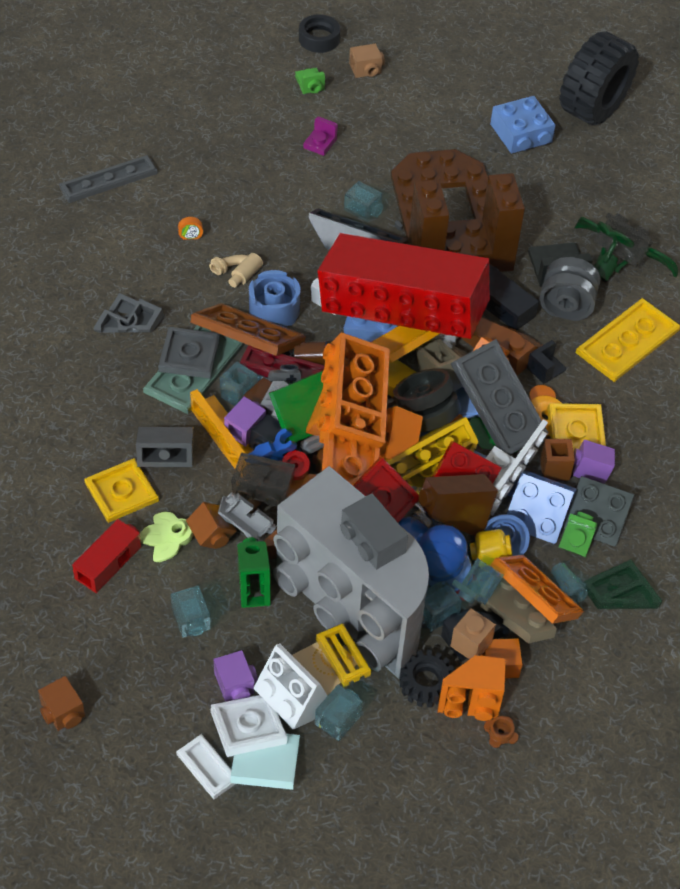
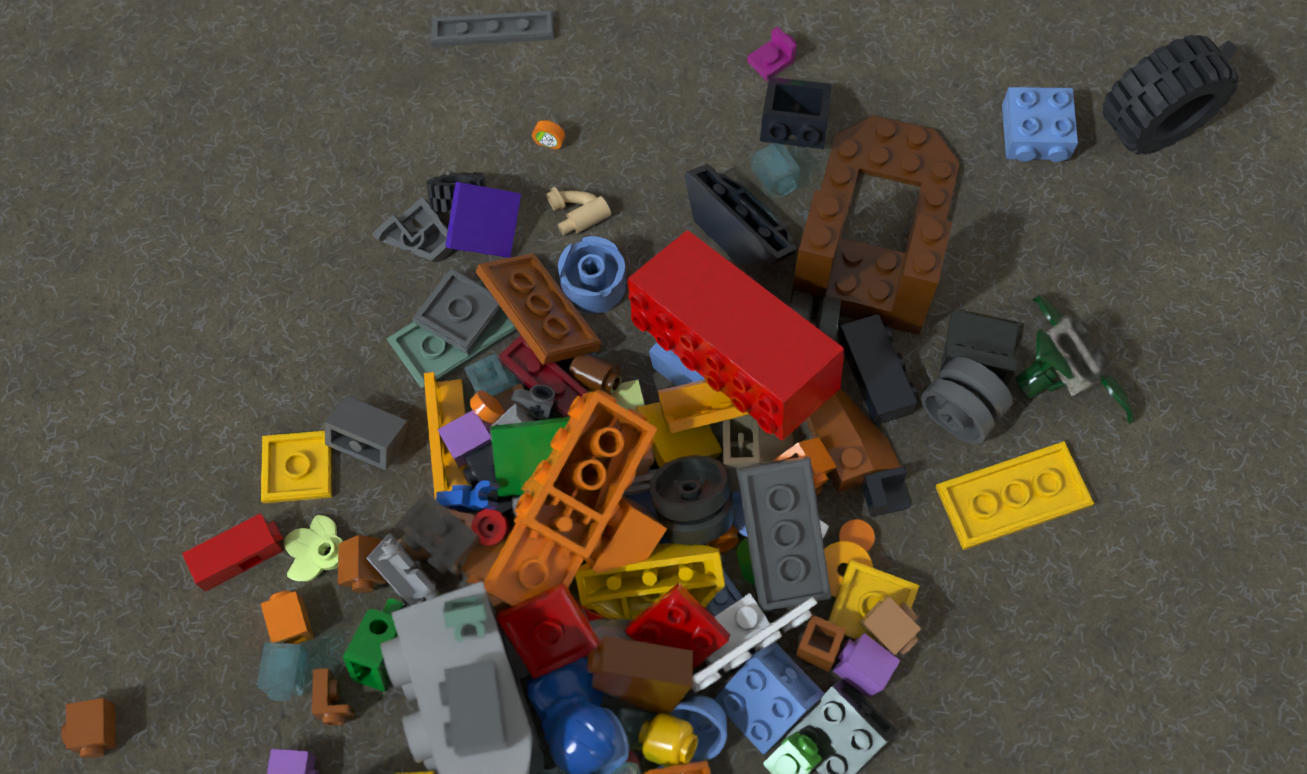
camera: 30 degrees right, 15 degrees up
(146, 278) = (442, 188): none -> black tyre
(171, 578) = (287, 618): none -> orange brick
(177, 287) = (482, 220): none -> dark purple tile
(231, 619) = (324, 693): none -> dark orange bracket
(251, 393) = (486, 406): none -> orange tile
(334, 480) = (466, 611): none -> sand green tile
(354, 160) = (785, 118): none -> black window
(598, 428) = (892, 625): none -> medium nougat brick

